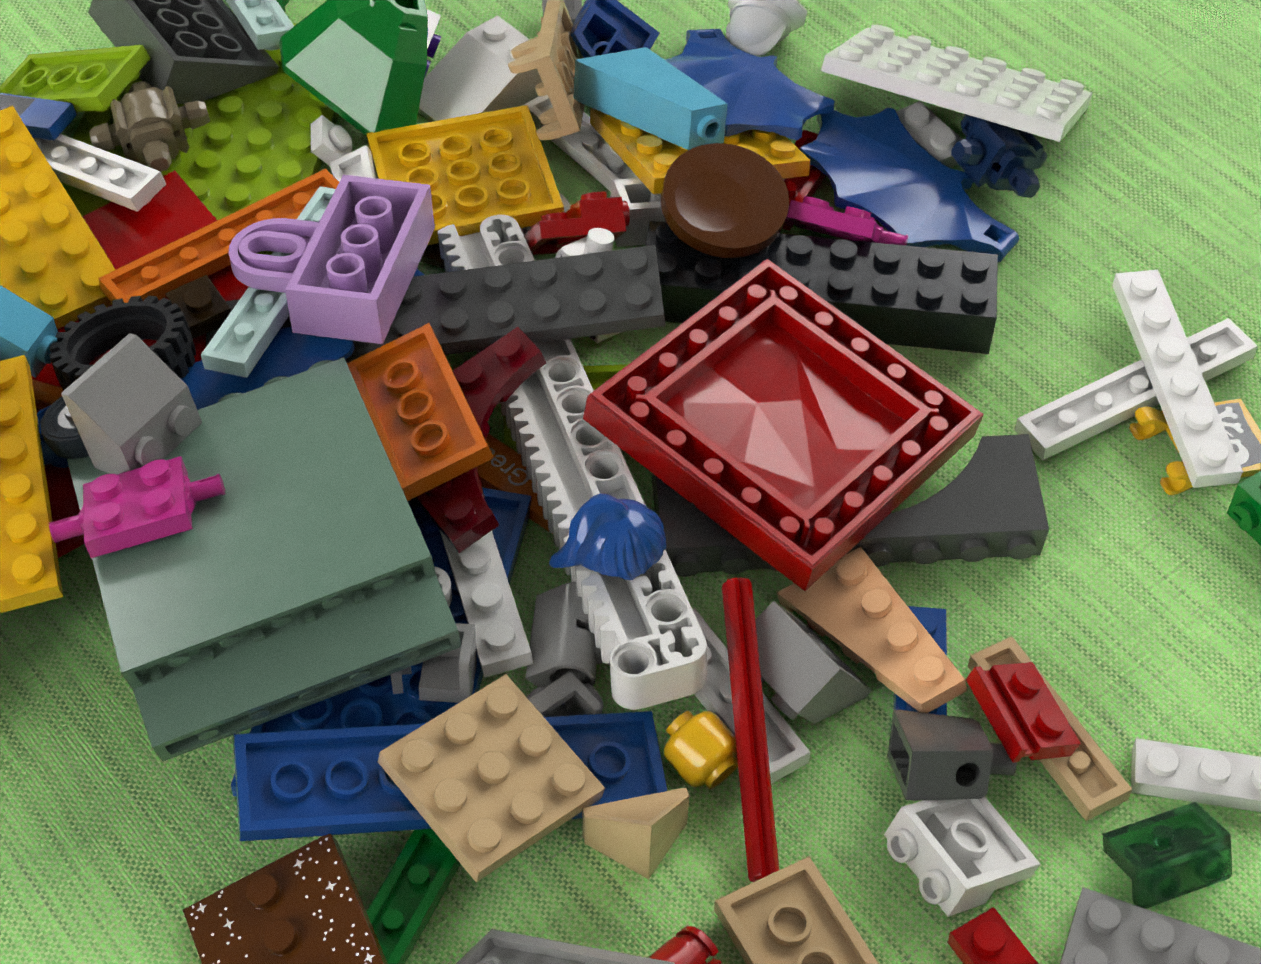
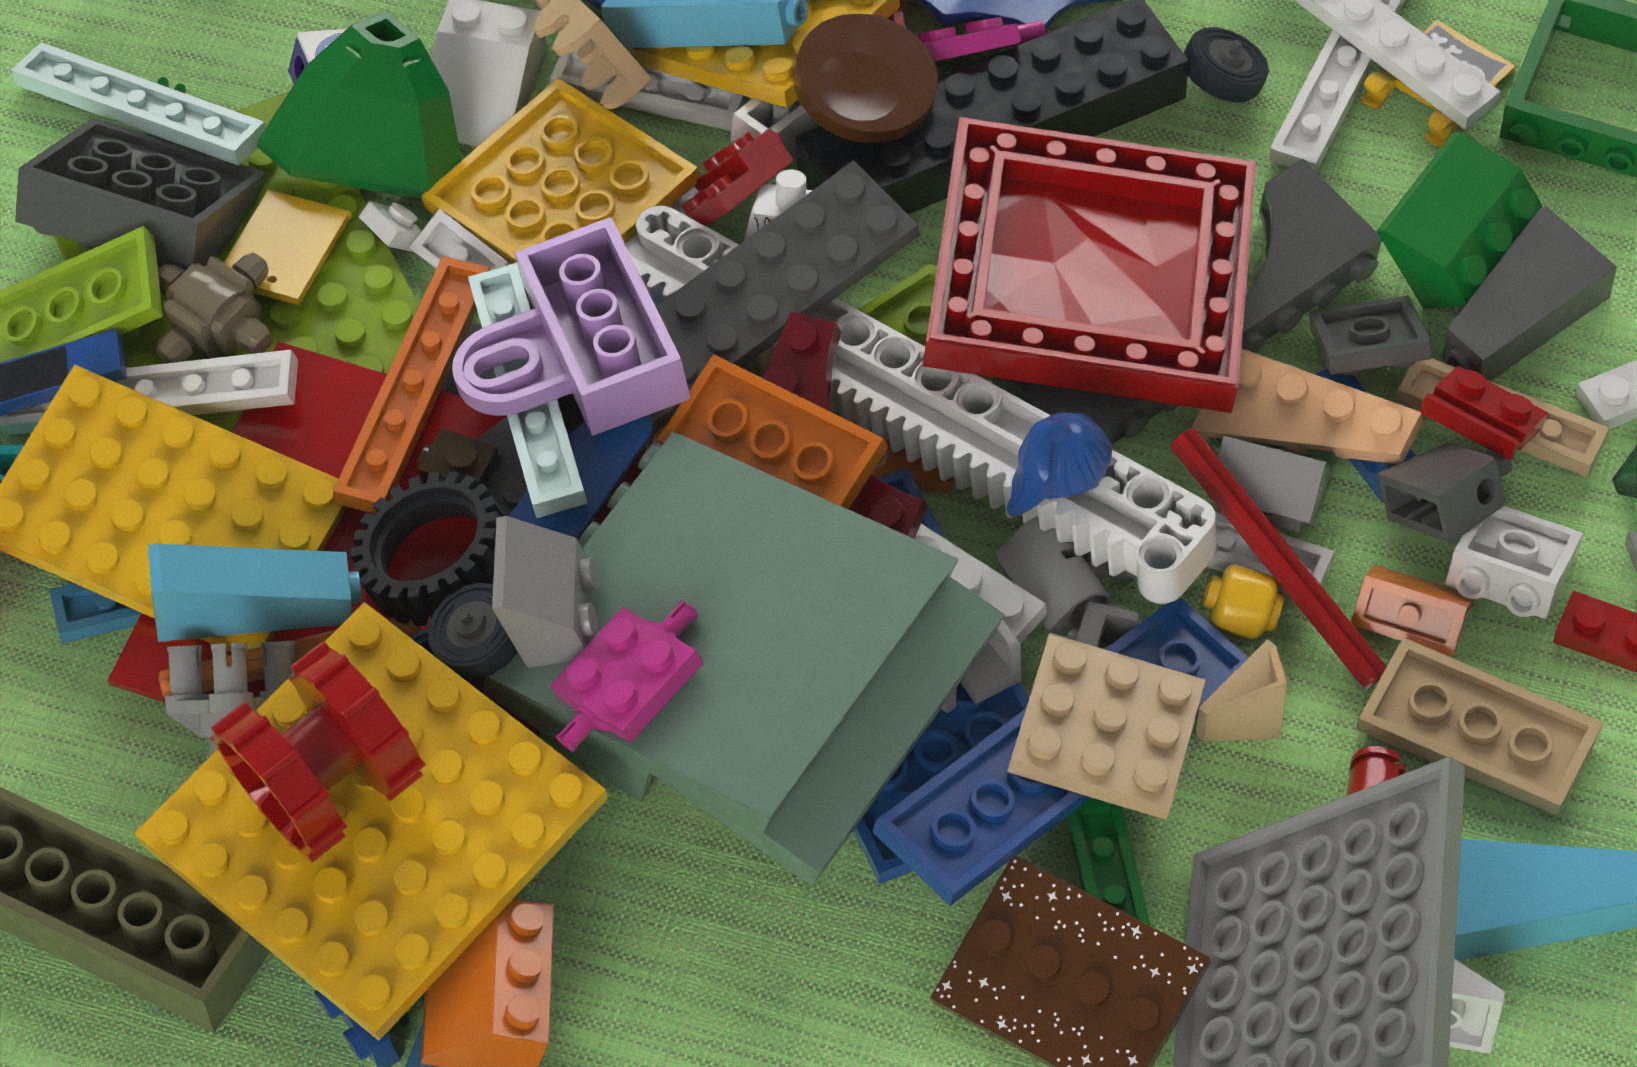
camera: 30 degrees left, 5 degrees up
(248, 117) = (292, 239): none -> yellow container
(839, 838) = (1411, 609): none -> panel
(979, 600) = (1370, 335): none -> dark grey plate
(1032, 341) = (1226, 64): none -> black wheel
(1123, 550) = (1458, 221): none -> green slope
(1142, 646) = (1529, 297): none -> dark grey slope

